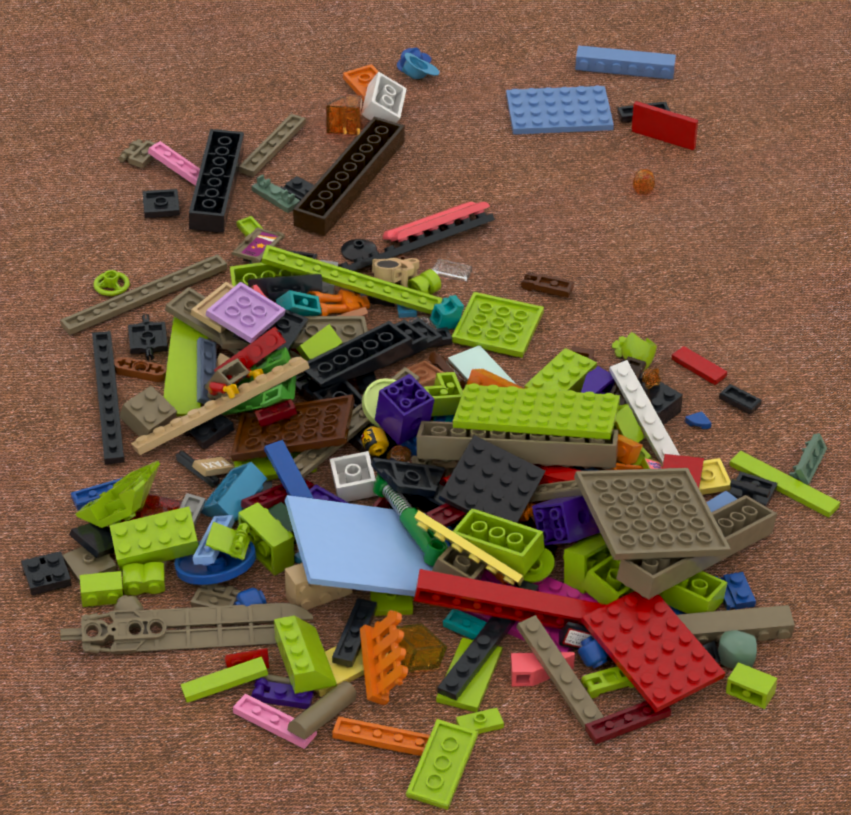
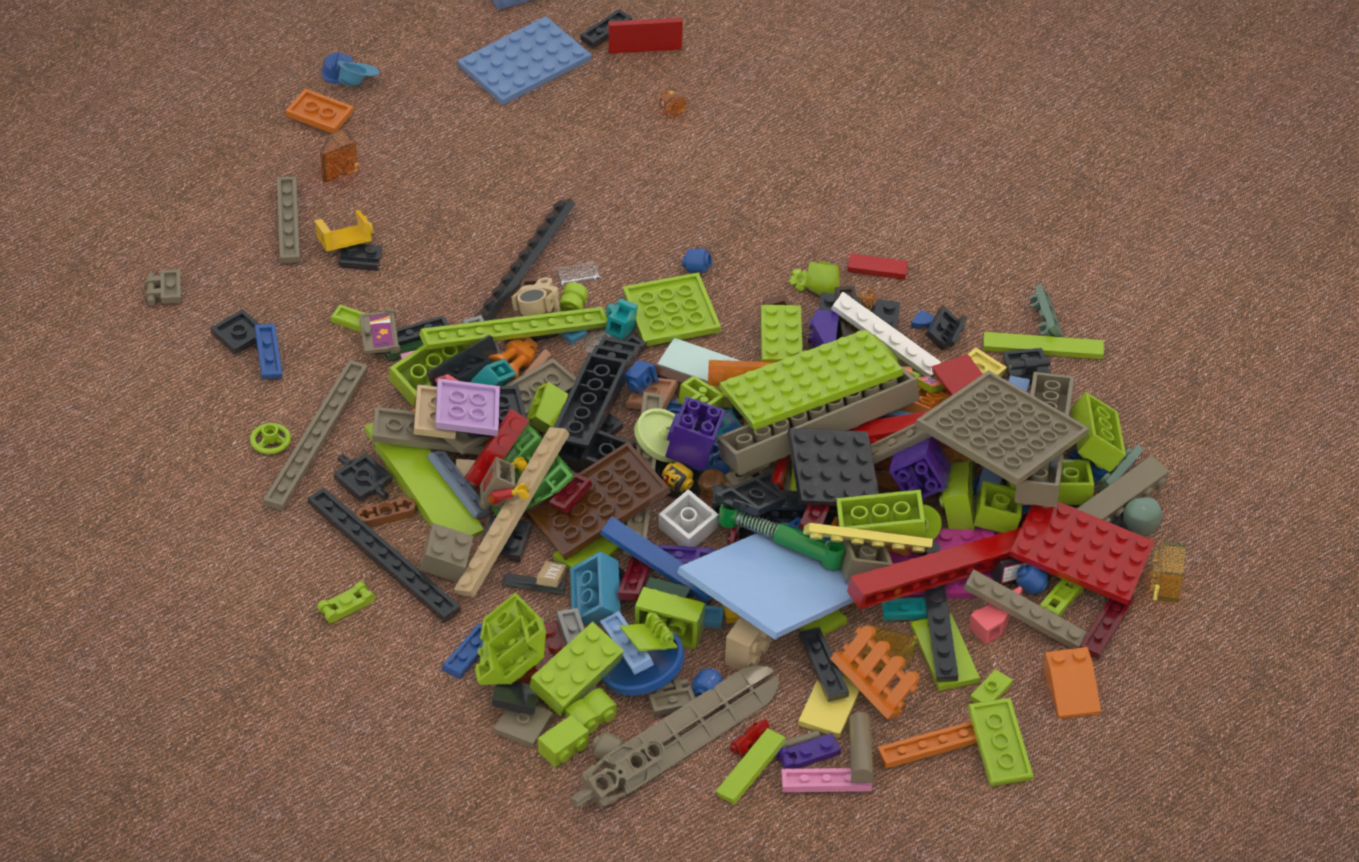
camera: 35 degrees left, 5 degrees up
(46, 573) = (496, 754): black brick -> none
(48, 417) = (346, 602): none -> lime plate
(165, 223) = (268, 351): none -> blue plate
(175, 162) = (220, 282): bright pink plate -> none
(216, 181) = (276, 282): black brick -> none
(275, 194) = (340, 271): sand green plate -> none
(285, 169) = (346, 236): none -> yellow panel
(303, 655) = (799, 709): lime slope -> none
(348, 176) = (399, 219): dark brown brick -> none
(357, 248) = (471, 293): black dish -> none
(383, 99) = (362, 123): white brick -> none
(417, 357) = (640, 376): none -> blue brick
(431, 222) = (522, 230): coral plate -> none
(547, 284) = (676, 247): reddish brown hinge -> none
(551, 298) = (697, 260): none -> blue head
(551, 750) = (1072, 682): none -> orange slope
(707, 431) = (945, 328): none -> black bracket
(716, 702) = (1168, 571): none -> clear yellow brick
(740, 399) = (941, 282): black plate -> none
(751, 685) = (1181, 534): lime brick -> none
(754, 564) = (1104, 440): none -> lime brick
(771, 599) = (1108, 478): none -> sand green plate

